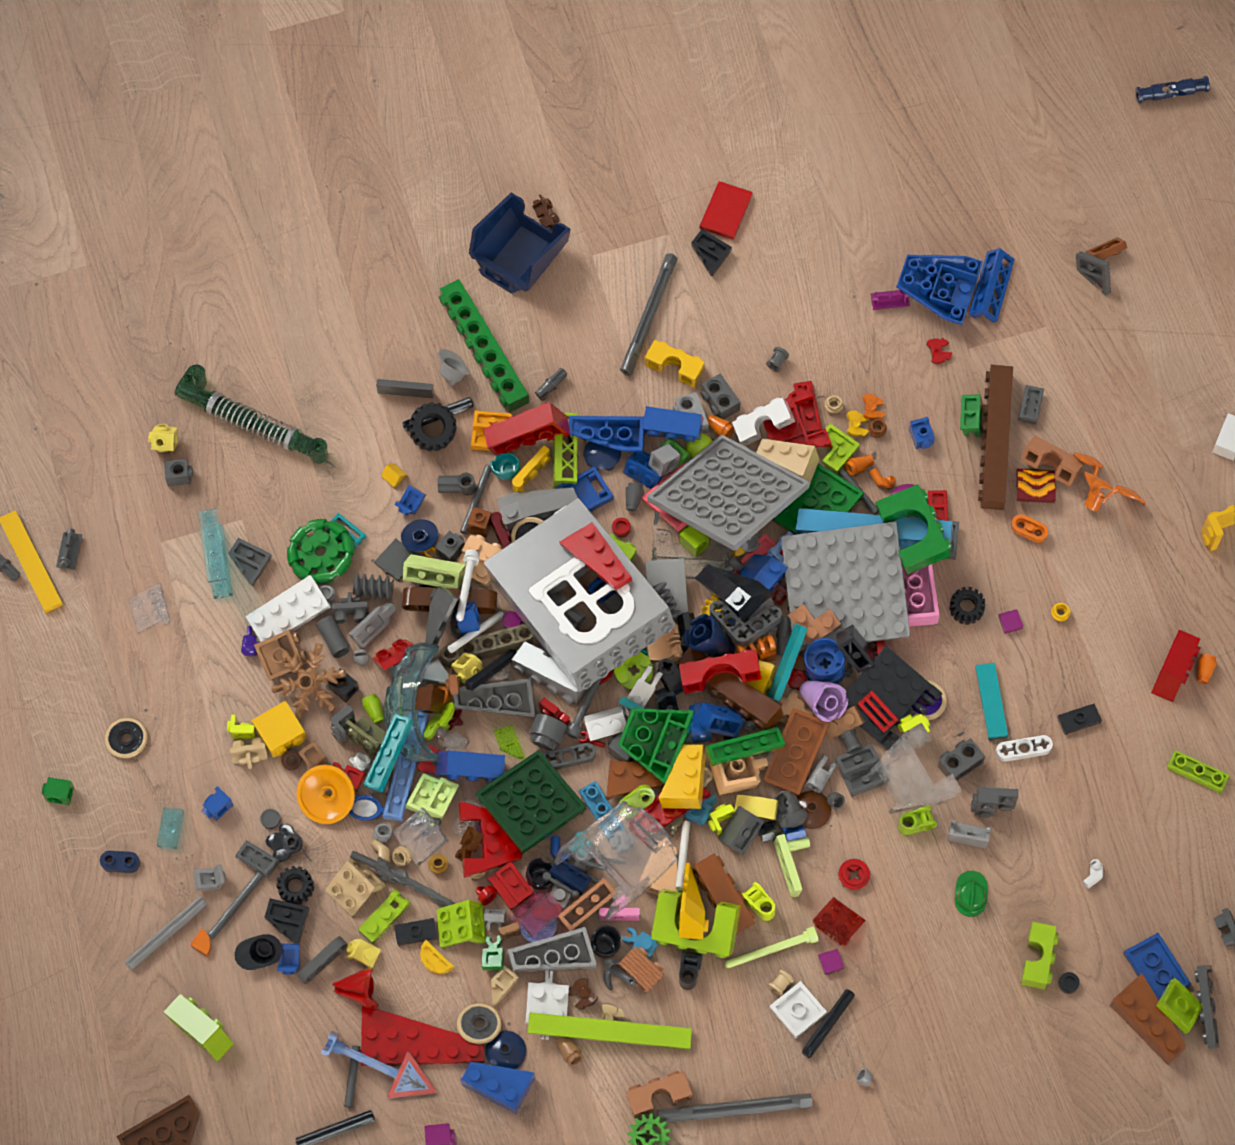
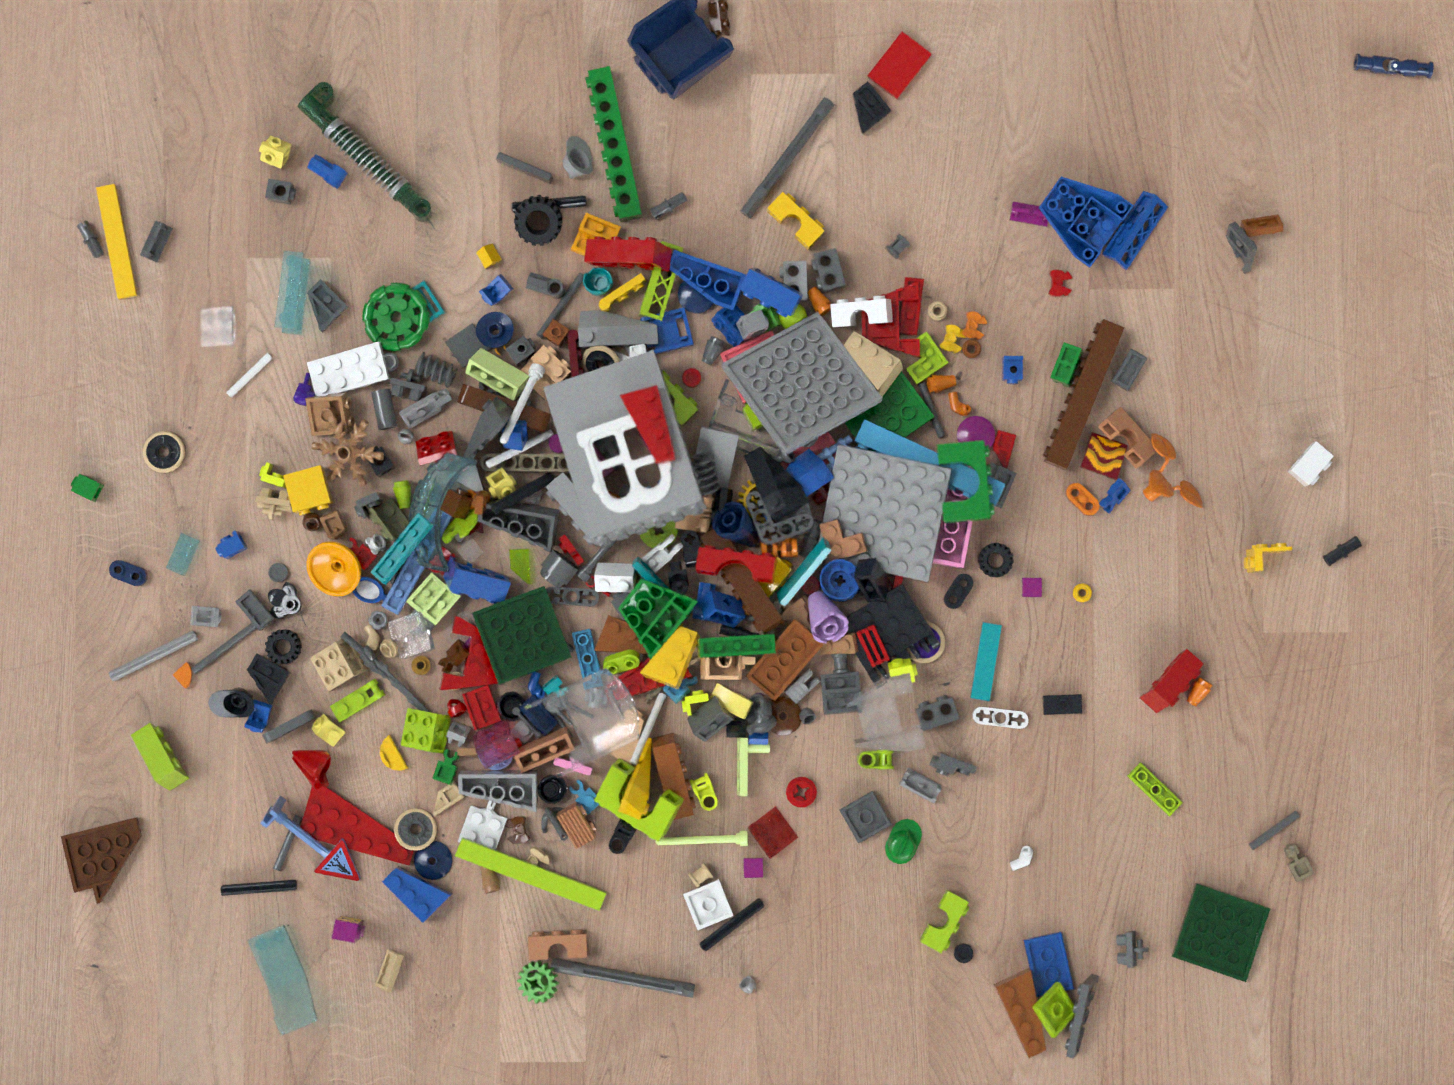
camera: 15 degrees right, 20 degrees up
(191, 645) = (249, 375): none -> white bar
(223, 444) = (330, 173): none -> blue piece
(415, 931) = (382, 724): black plate -> none
(925, 879) = (865, 817): none -> dark grey plate
(940, 644) = (958, 591): none -> black plate
(1060, 515) = (1116, 494): none -> blue plate

